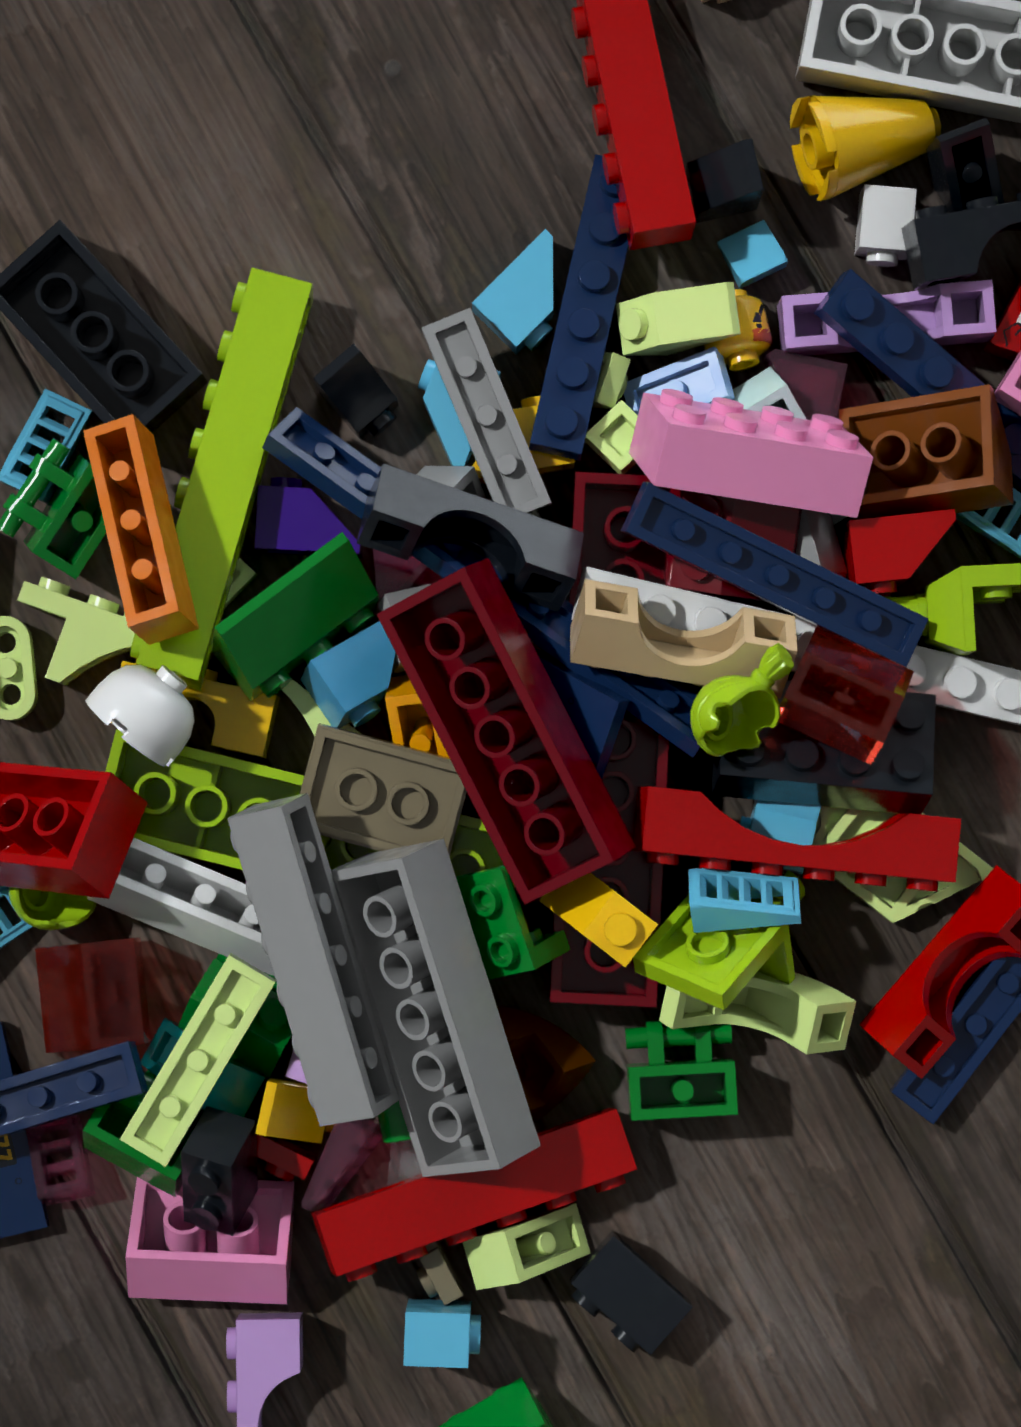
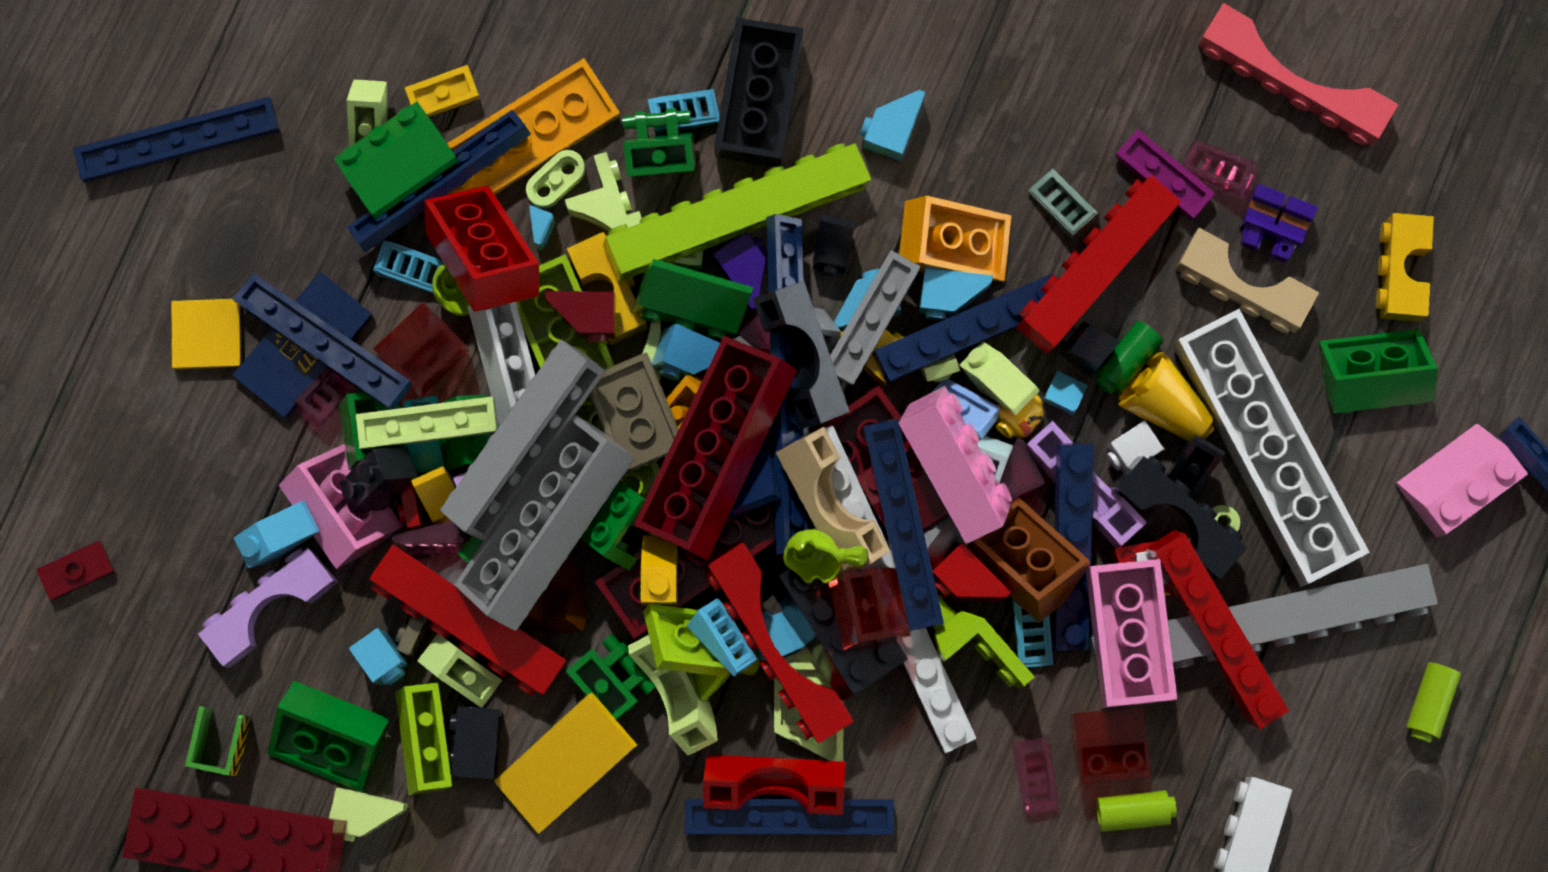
camera: 50 degrees right, 5 degrees down
(54, 730) = (542, 226): none -> medium azure slope
(140, 530) = (675, 186): orange brick -> none
(146, 710) = (585, 258): white cylinder -> none
(189, 1346) = (276, 535): none -> medium azure slope
(213, 760) = (587, 313): none -> dark red slope
(263, 205) = (892, 126): none -> medium azure slope
(461, 238) = (955, 237): none -> light orange slope
(541, 53) = (1084, 225): none -> sand green slope
(578, 1354) = (423, 738): none -> lime brick
(613, 437) = (911, 390): yellowish green plate -> none
(740, 1204) = (565, 763): none -> yellow tile
(767, 120) = (1128, 358): none -> green brick

